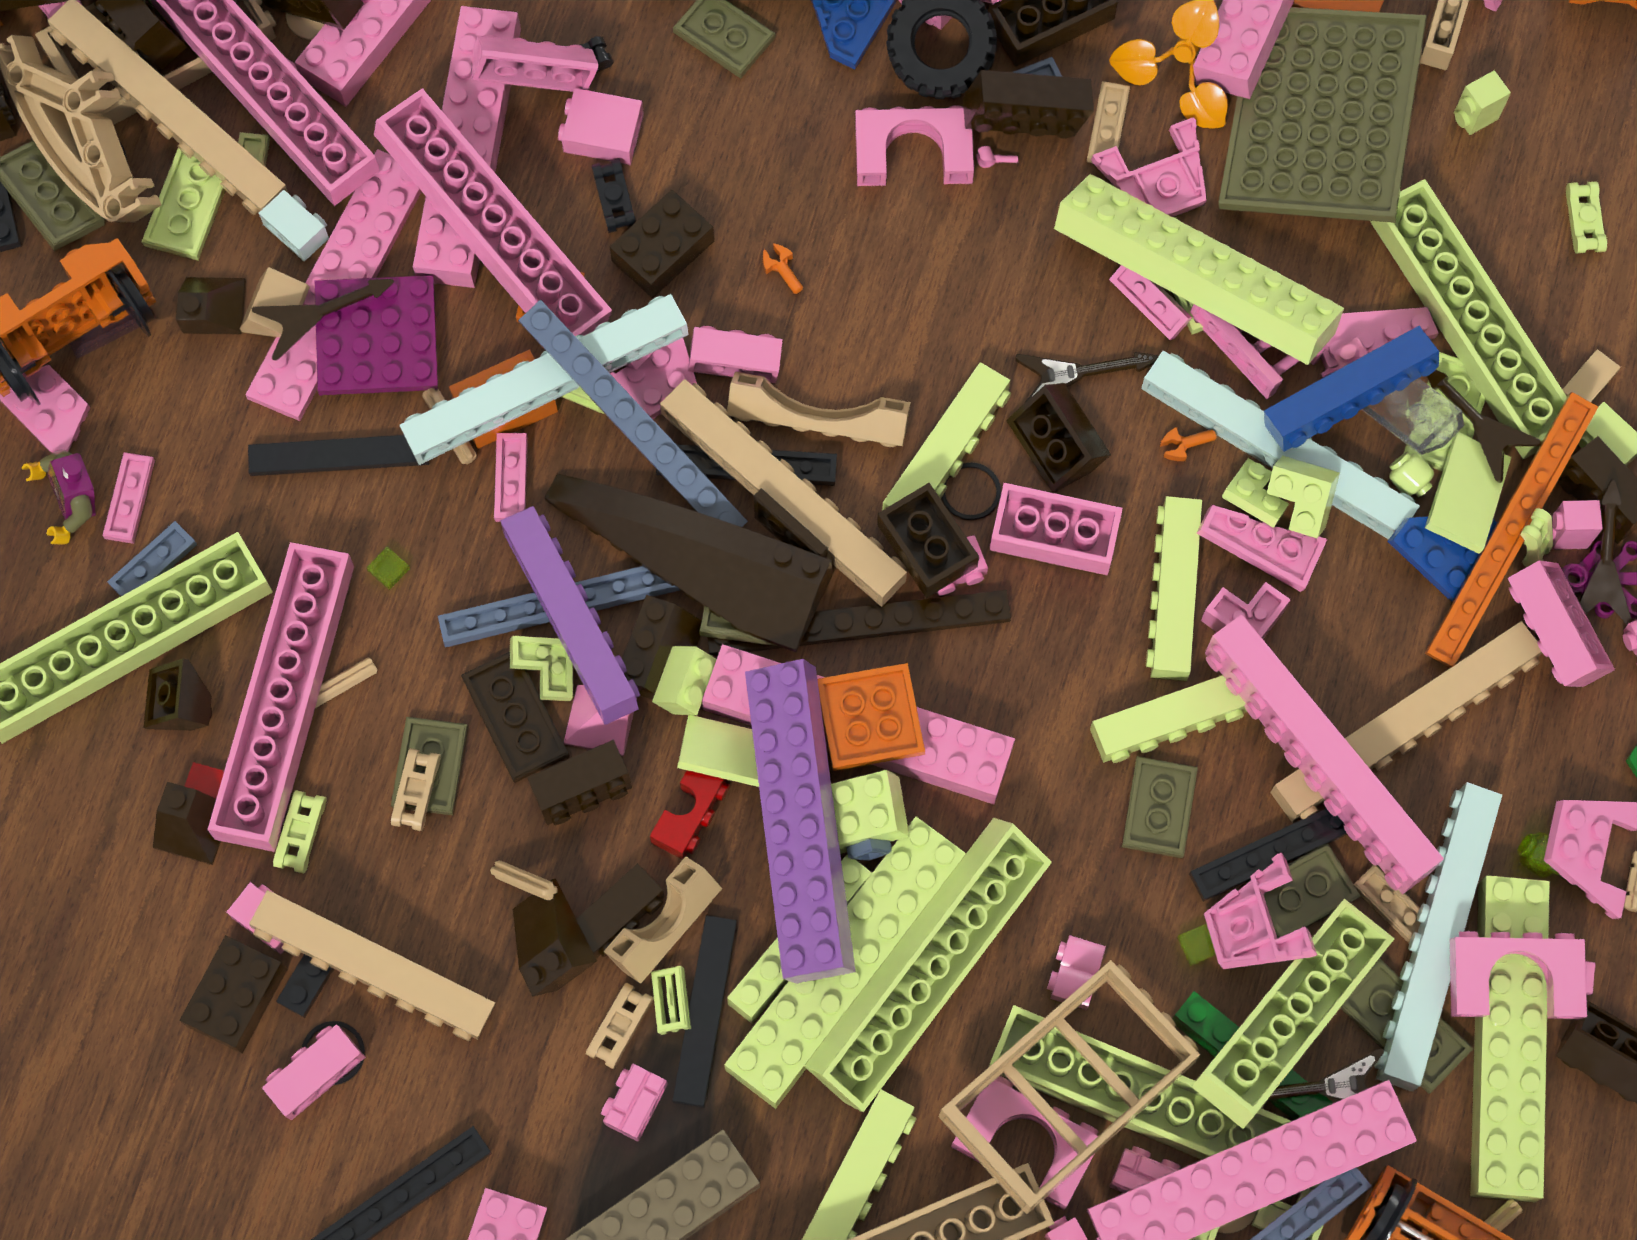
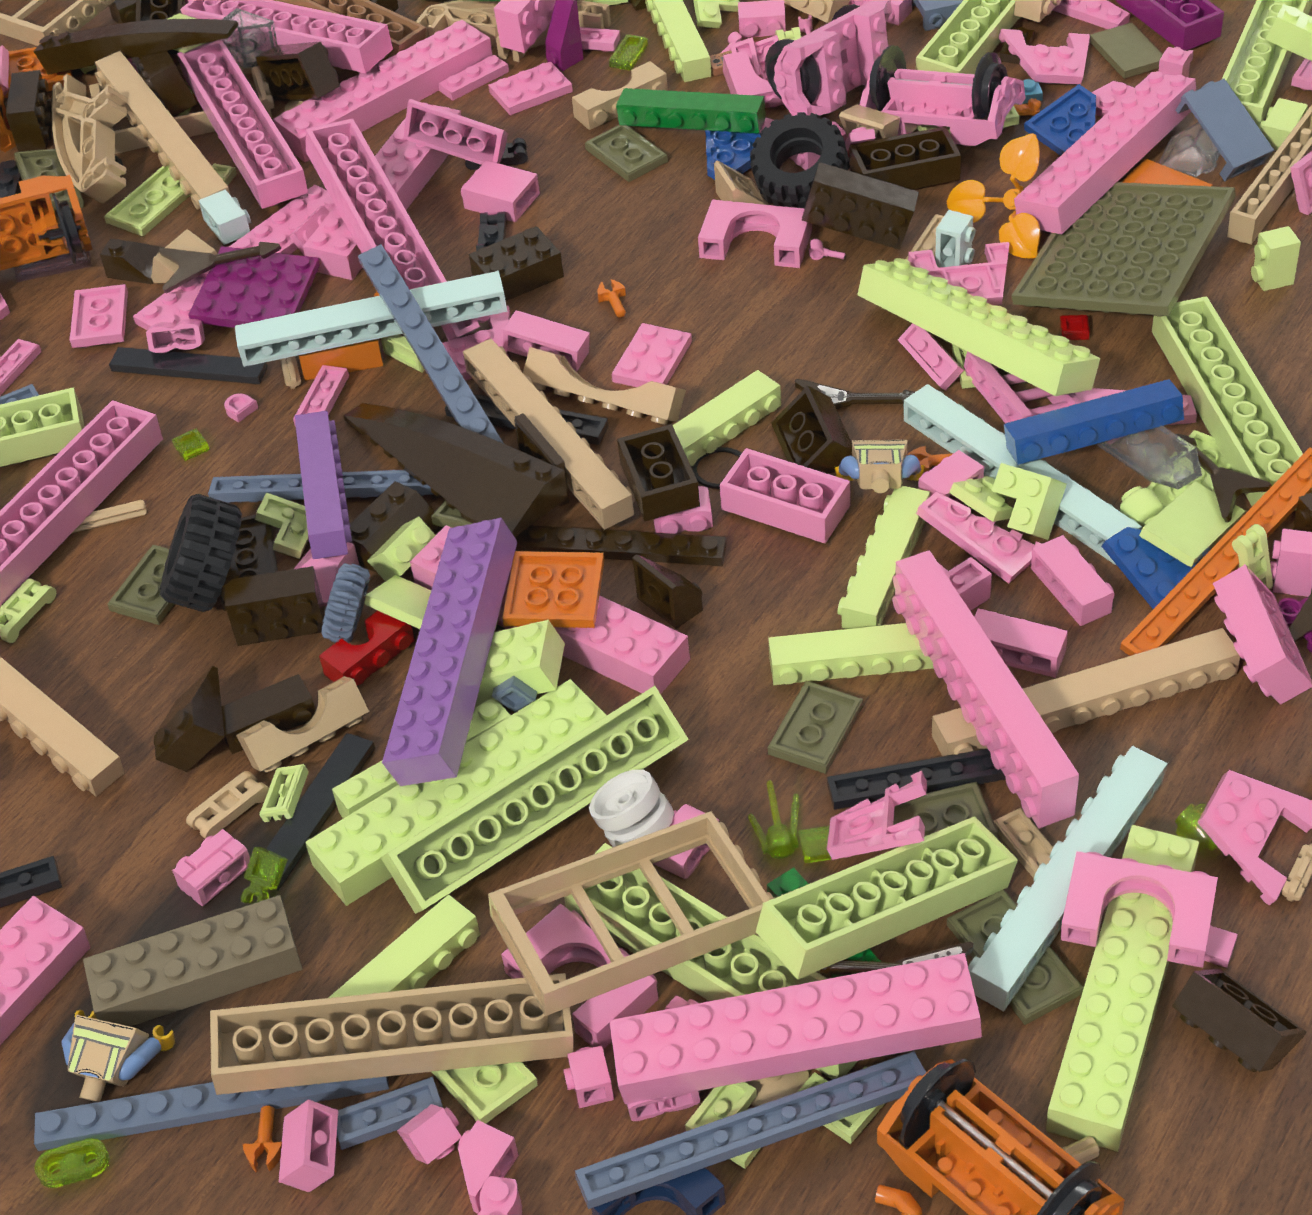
camera: 20 degrees right, 25 degrees down
(205, 401) = (99, 316): none -> bright pink plate
(312, 421) = (183, 335): none -> bright pink brick
(405, 226) = (308, 227): none -> bright pink plate
(415, 789) = (130, 591): tan plate -> none
(421, 503) = (240, 406): none -> bright pink tile
(487, 745) = (200, 553): none -> black tyre
(524, 880) = (190, 667): tan axle -> none
(655, 768) = (345, 603): none -> sand blue gear
(692, 1103) = (264, 873): none -> clear neon green plate
(852, 350) = (651, 356): none -> bright pink plate
(876, 82) = (735, 186): none -> tan slope
(973, 679) = (666, 592): none -> dark brown slope
(1024, 959) = (630, 807): none -> white wheel
(1141, 134) = (954, 240): none -> light aqua brick
(1144, 479) = (880, 465): none -> torso
(1164, 948) = (779, 840): none -> clear neon green plant
(1214, 473) = (951, 469): none -> bright pink brick
(1287, 227) = (1074, 327): none -> red tile
(1331, 669) = (1024, 643): none -> bright pink brick
(1363, 580) = (1072, 580): none -> bright pink brick

